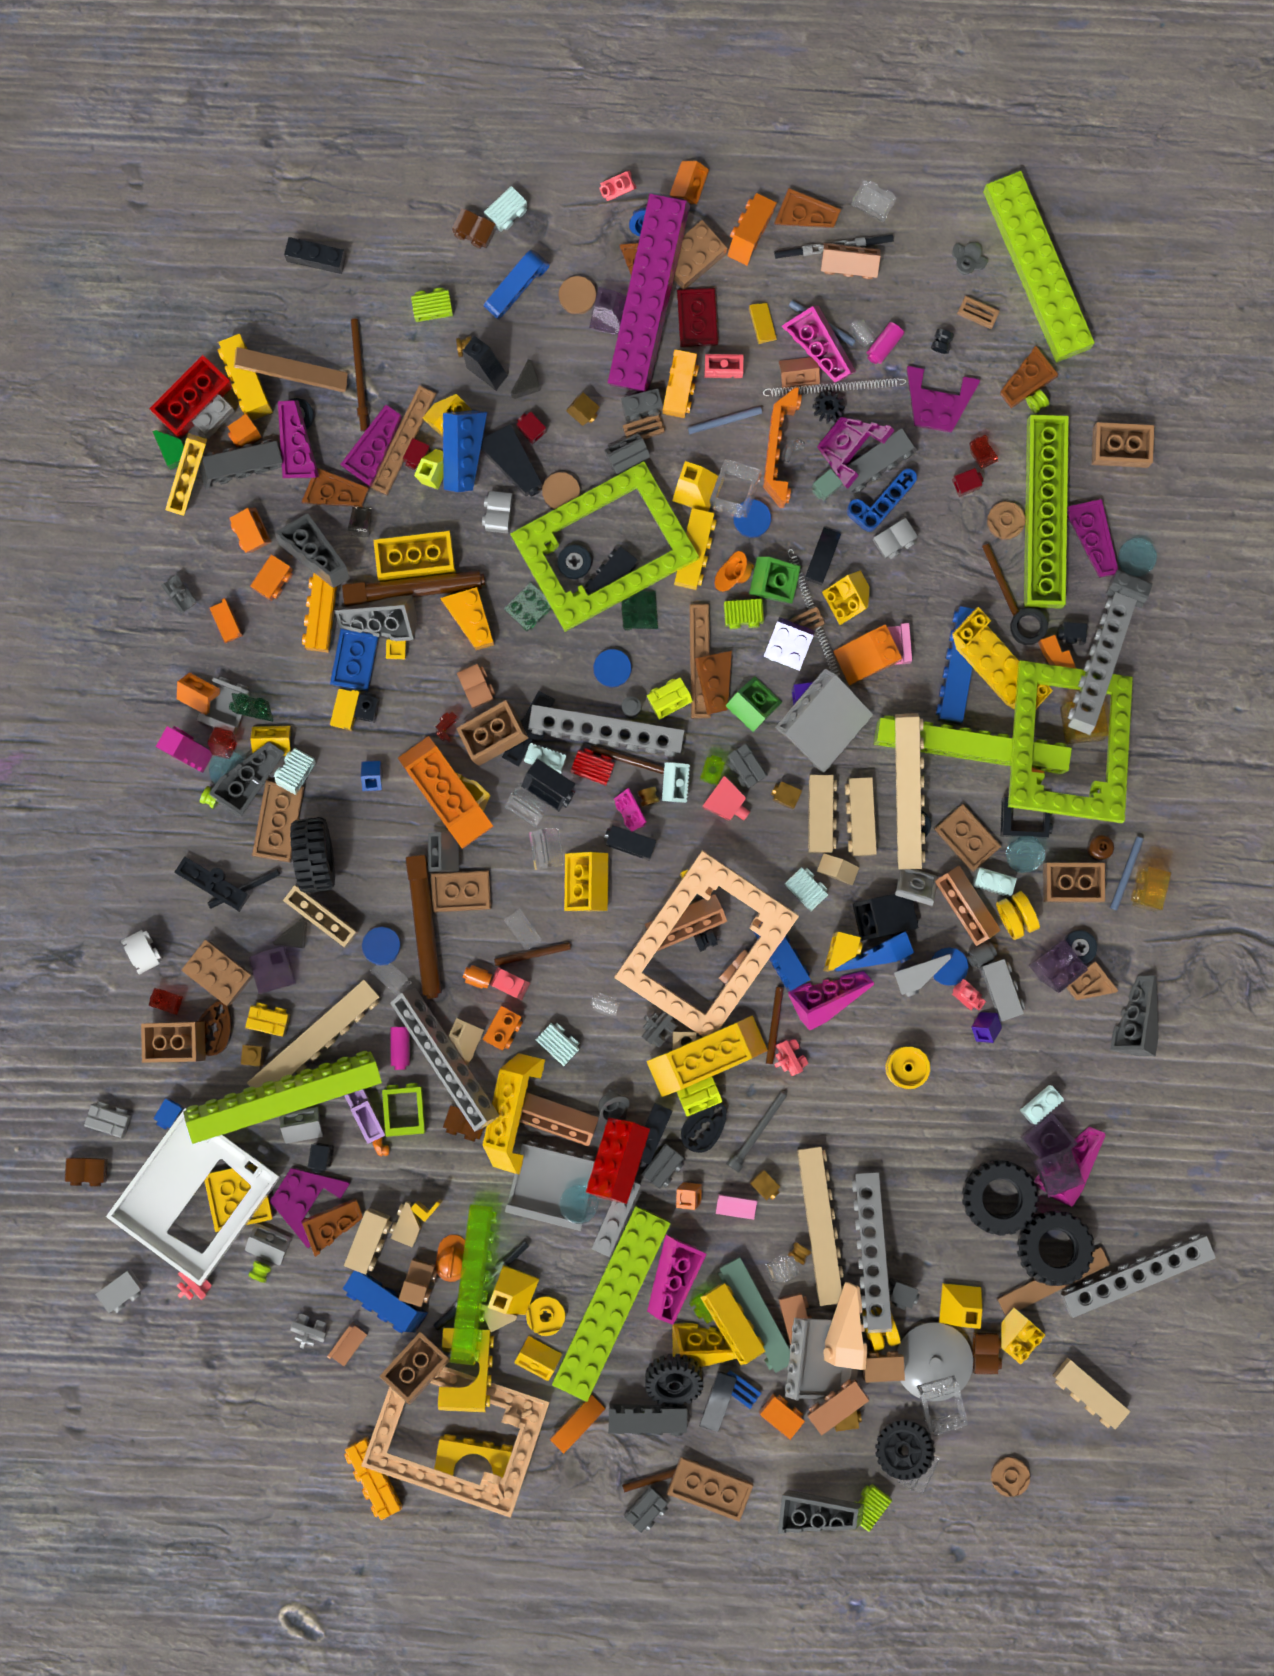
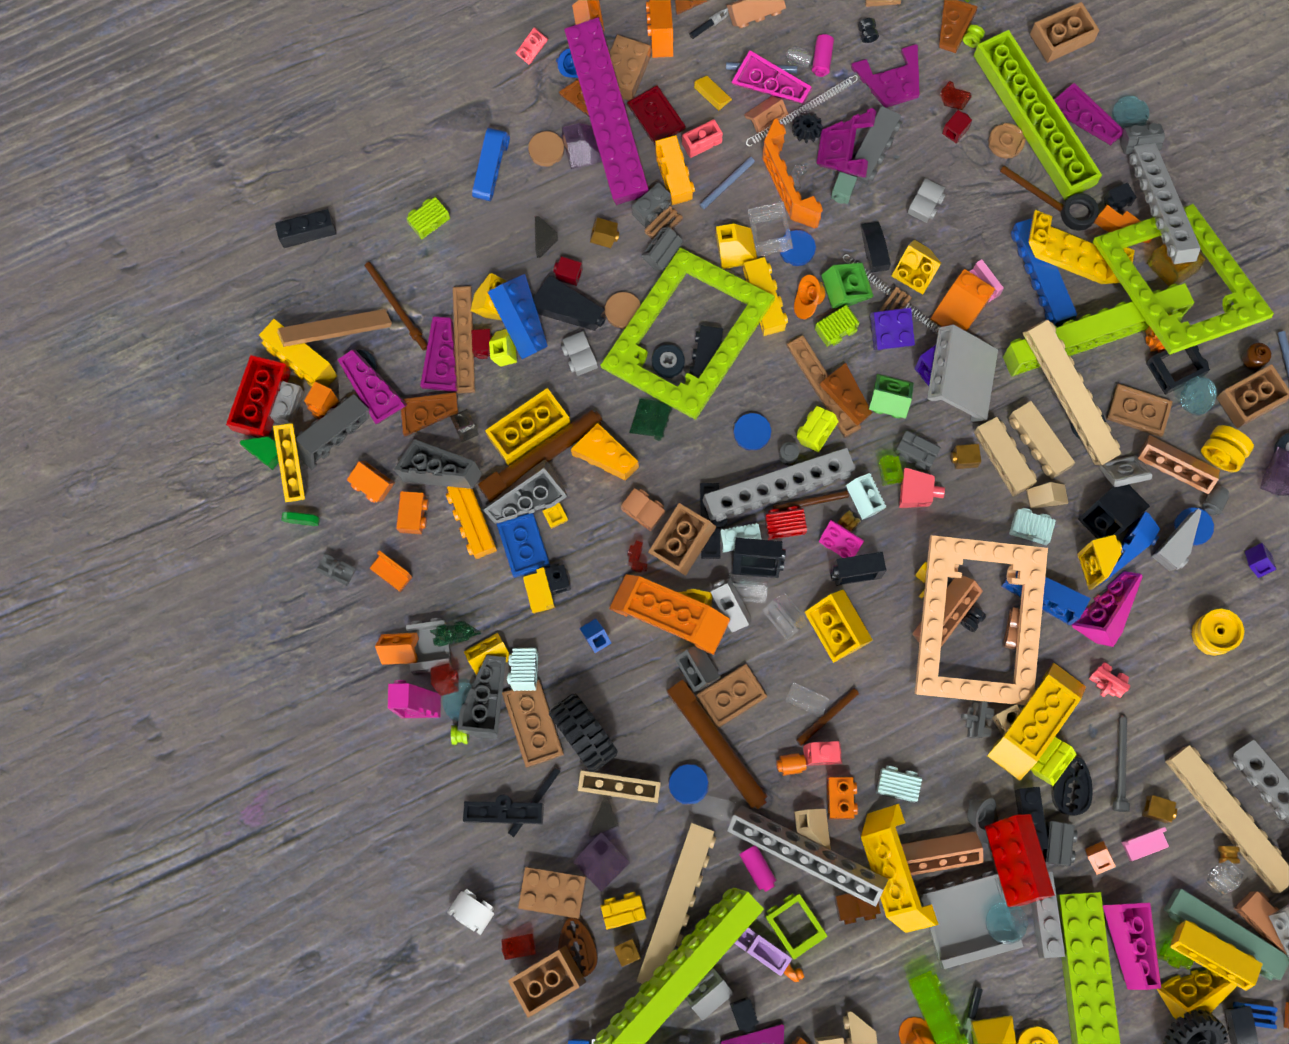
camera: 20 degrees left, 10 degrees down
(172, 529) = (300, 518): none -> green tile
(422, 1211) = (875, 1011): yellow panel -> none
(461, 343) = (474, 236): pearl gold wheel -> none
(473, 228) = (429, 140): reddish brown brick -> none
(483, 363) = (499, 236): black slope -> none
(502, 813) = (730, 604): none -> light grey brick
(506, 209) = (448, 111): light aqua brick -> none
(604, 1004) = (919, 725): clear brick -> none
(640, 611) = (748, 372): clear green hinge -> none
(774, 1025) = (1077, 661): reddish brown bar -> none
(886, 498) = (900, 173): blue beam -> none
(968, 995) = (1228, 540): coral hips -> none
(994, 882) = (1187, 433): light aqua brick -> none
(1002, 989) = (1253, 520): light grey brick -> none

